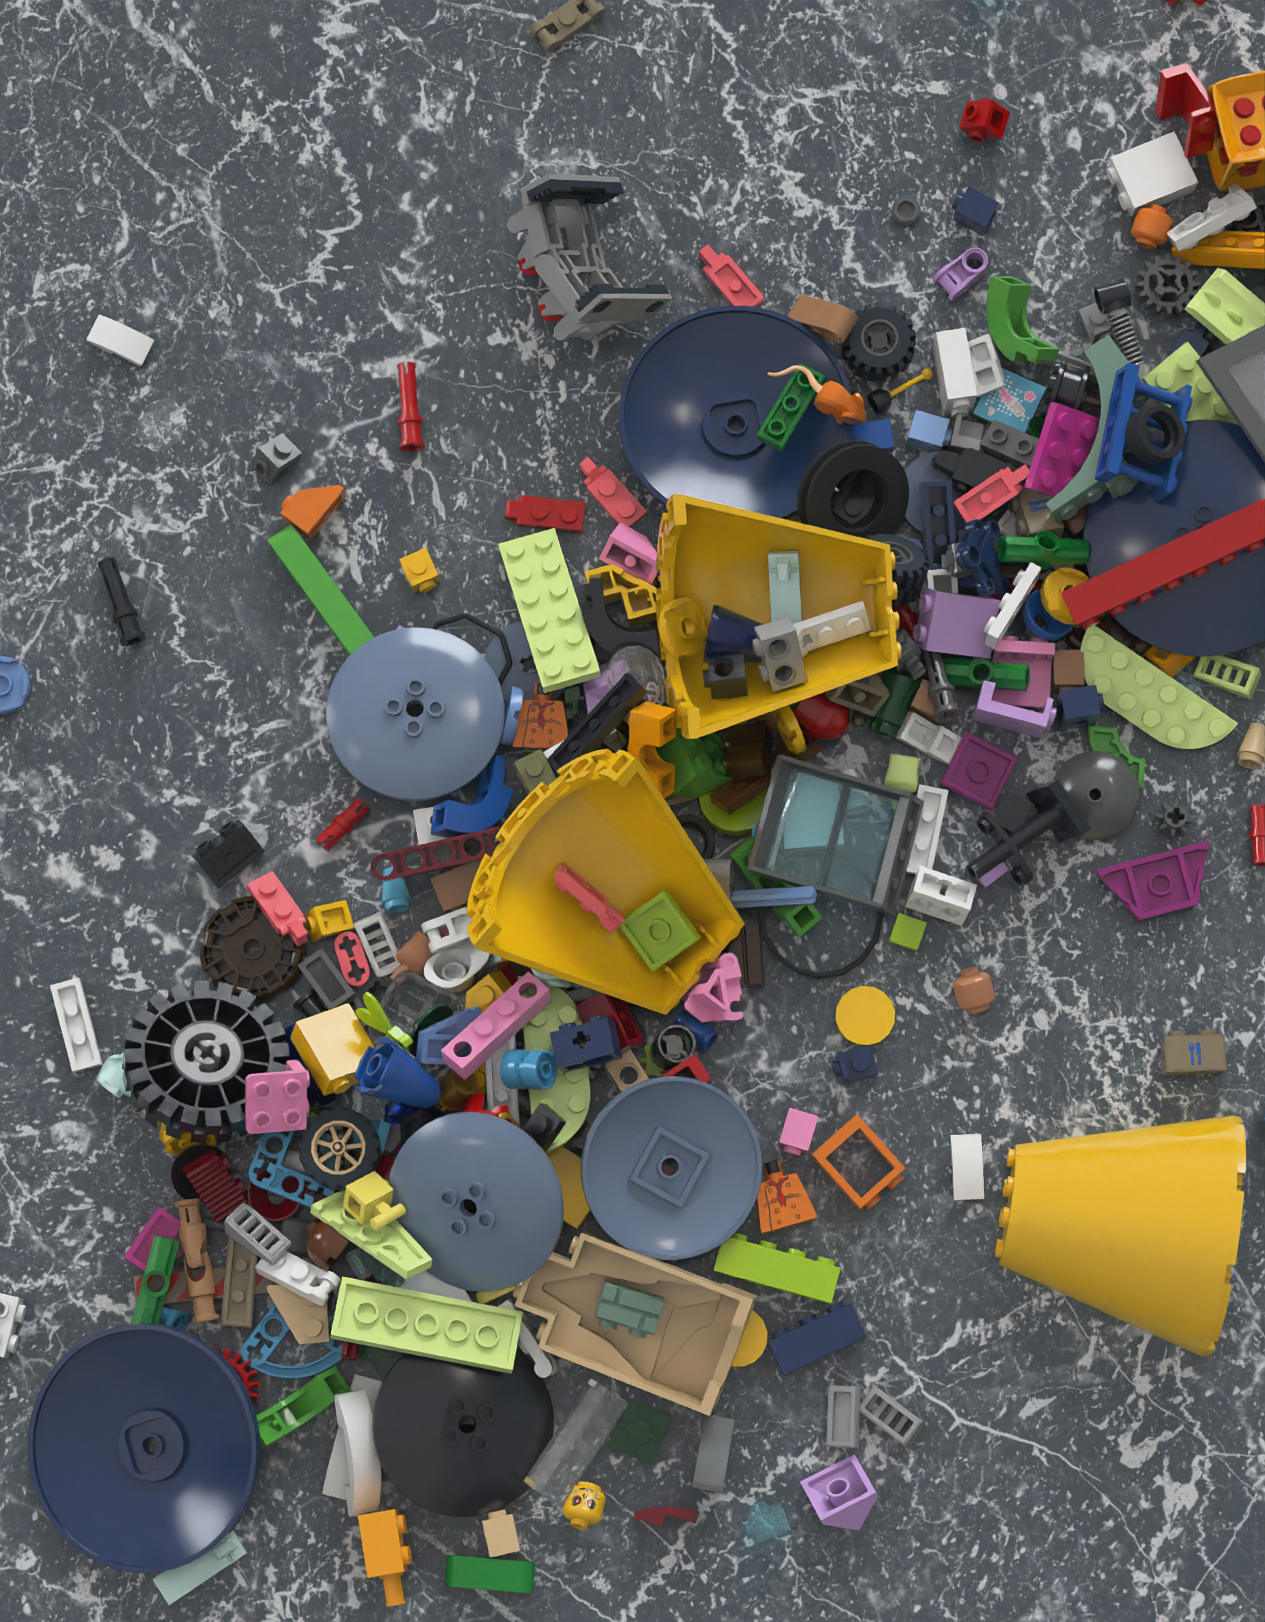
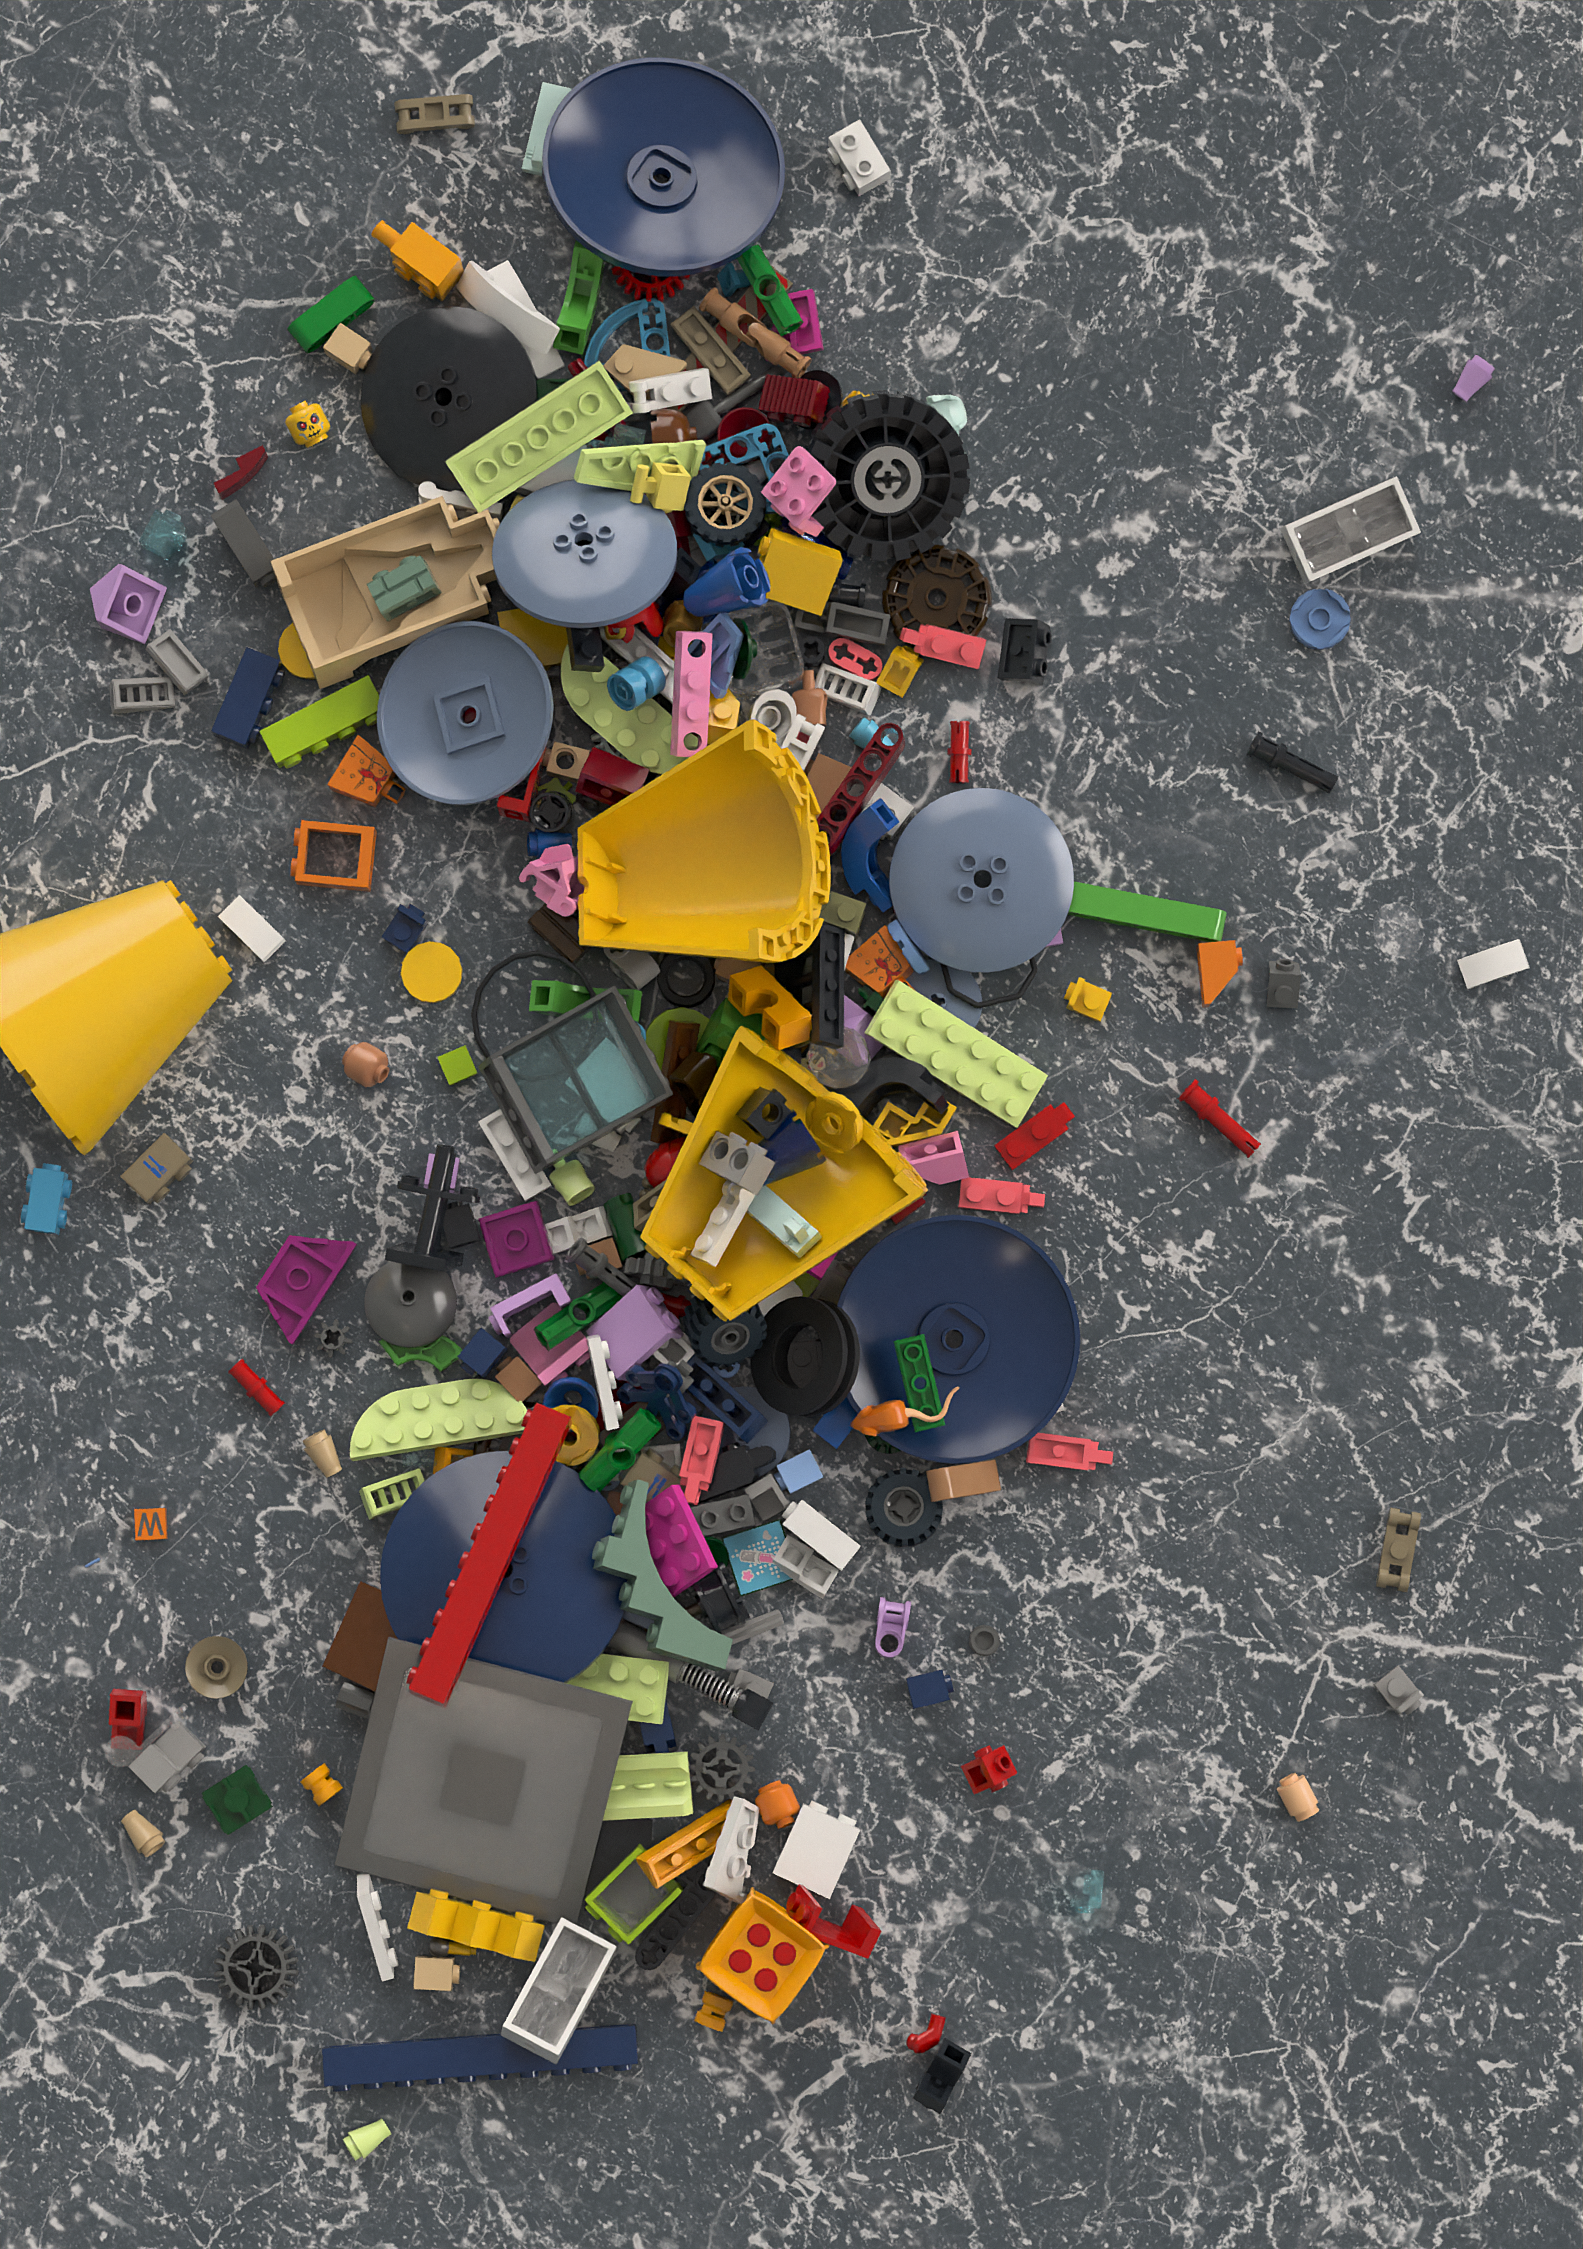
camera: 135 degrees right, 5 degrees up
(76, 1025) = (1012, 422): white plate -> none
(245, 1218) = (753, 388): light grey slope -> none
(377, 1019) = (789, 617): lime piece -> none
(575, 1442) = (354, 460): clear brick -> none
(582, 289) = (1186, 1321): light grey container -> none
(588, 897) = (717, 856): coral hinge -> none
(602, 1048) = (617, 725): dark blue brick -> none
(639, 1432) = (316, 514): dark green piece -> none
(659, 930) = (641, 885): lime tile -> none
(773, 897) = (578, 988): medium blue axle -> none
(797, 1132) = (401, 837): bright pink brick -> none
(881, 399) = (860, 1466): hinge -> none
(941, 895) = (455, 1112): white brick -> none
(1008, 322) = (815, 1617): bright green arch -> none
(1114, 437) = (636, 1578): blue fence -> none
(1172, 429) = (593, 1619): black tyre -> none

